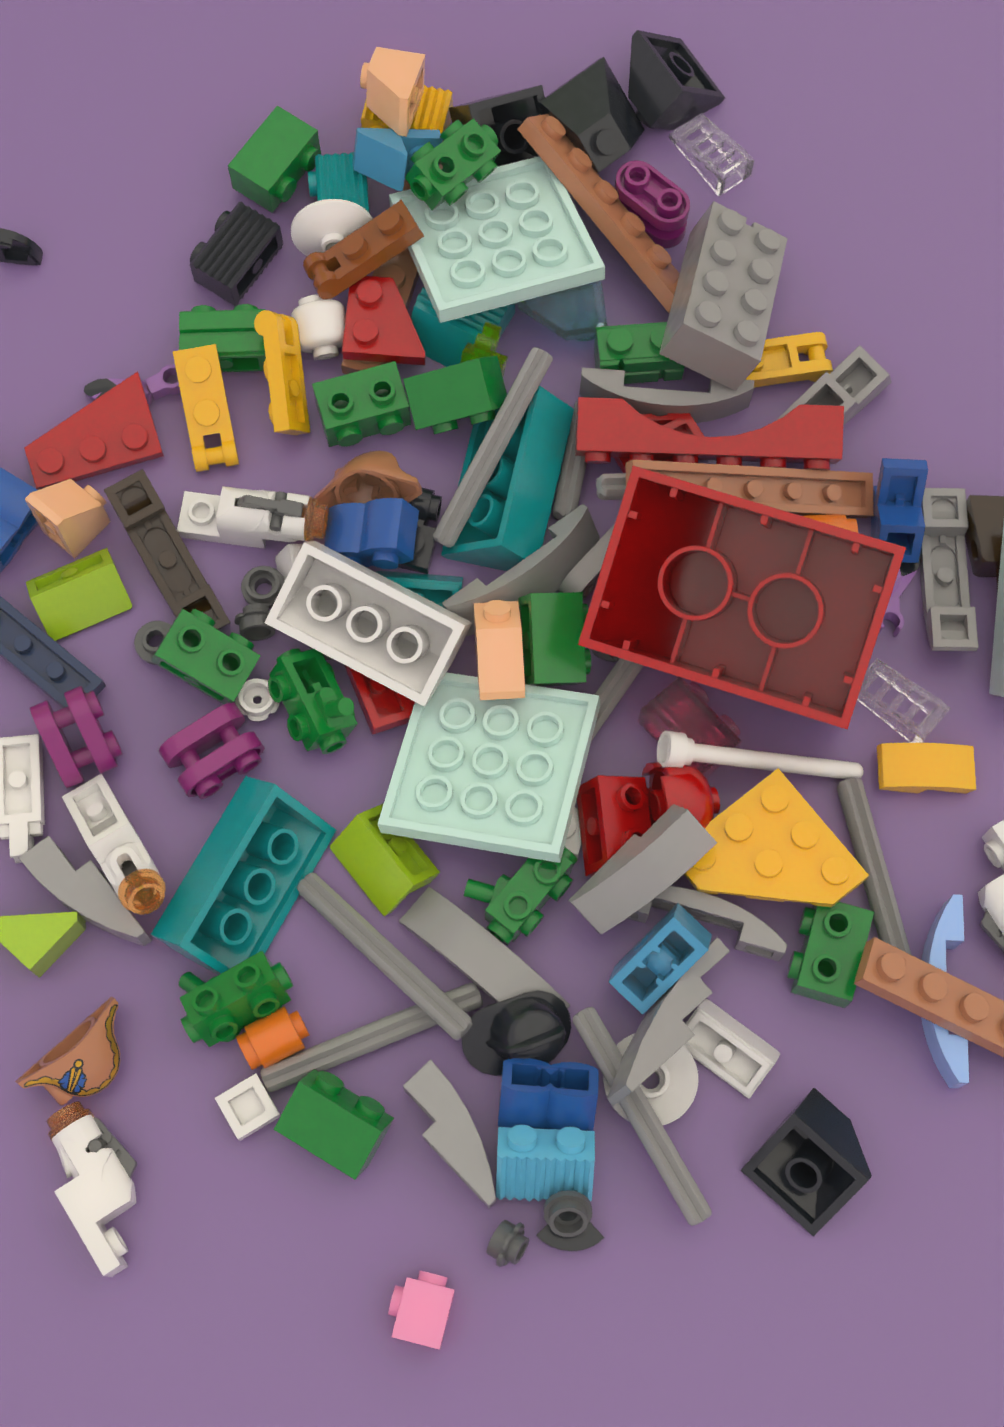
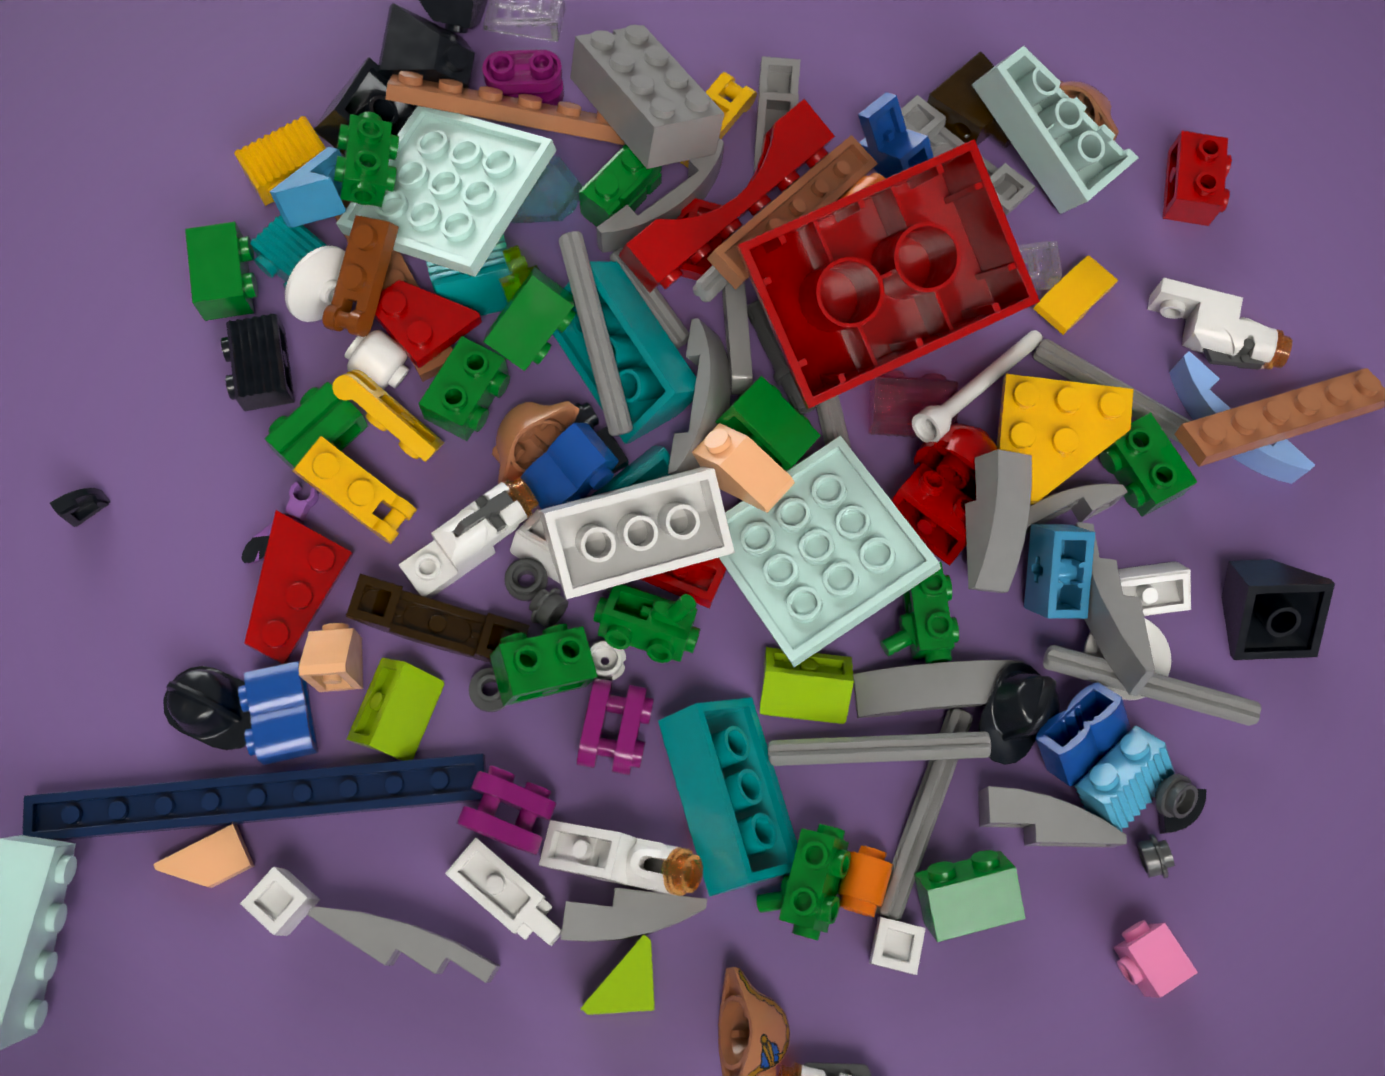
camera: 50 degrees left, 0 degrees up
(394, 86) = (265, 141): light nougat slope -> none

